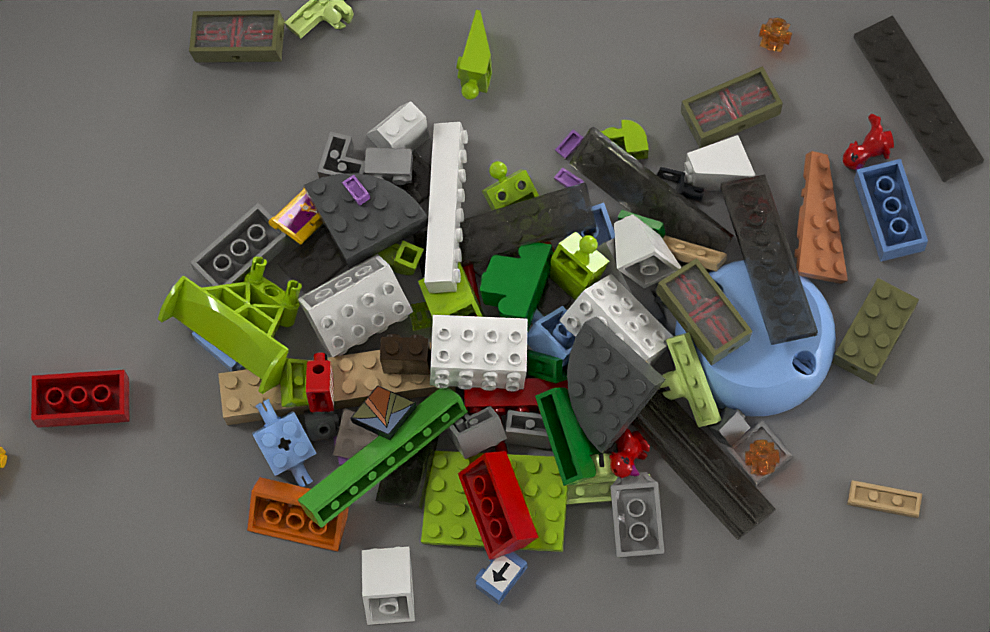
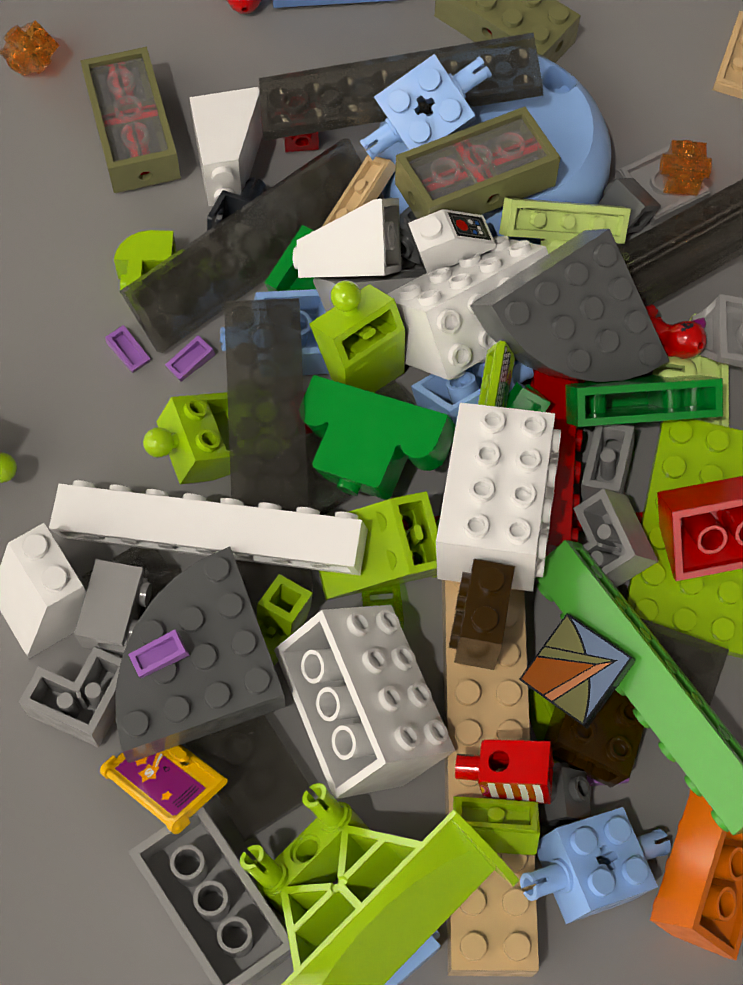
camera: 90 degrees left, 5 degrees down
(551, 345) = (497, 375): none -> lime slope
(651, 303) = (450, 236): none -> white slope
(740, 271) = (429, 84): none -> light blue brick
(818, 229) = (336, 46): nougat wing -> none

